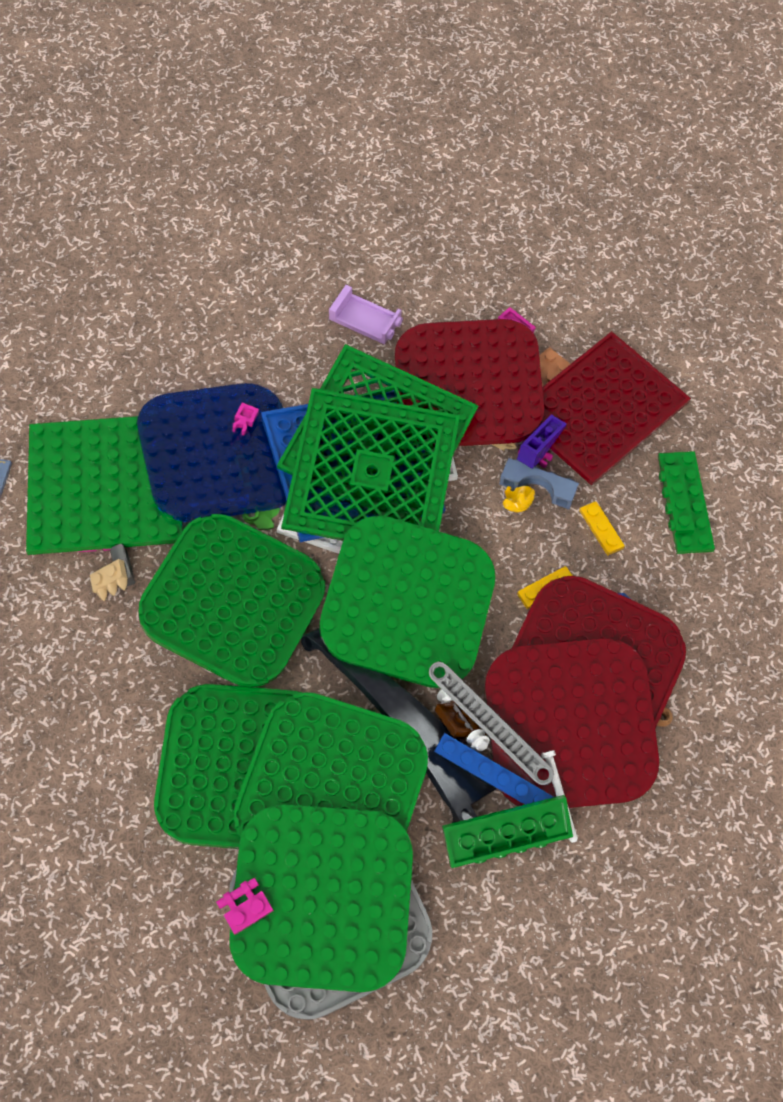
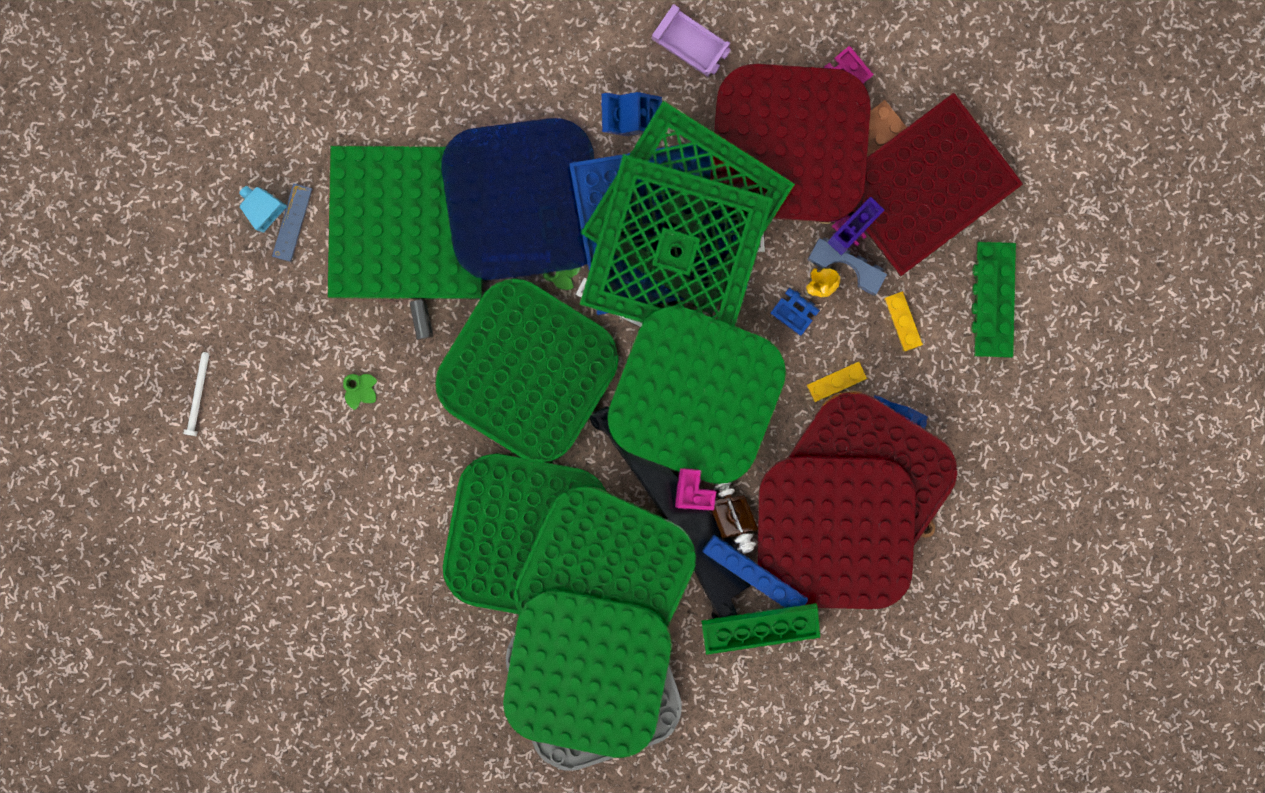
camera: 10 degrees right, 25 degrees up
(62, 640) = (361, 392): none -> bright green plate
(108, 579) = (408, 335): tan plate -> none
(245, 416) = (553, 165): dark pink plate -> none
(248, 912) = (522, 682): dark pink plate -> none
(310, 370) = (628, 113): none -> blue bracket
(413, 696) = (689, 494): none -> dark pink plate
(491, 723) = (759, 529): light grey gear -> none
(493, 532) = (791, 316): none -> blue plate
(557, 785) = (809, 564): white bar -> none

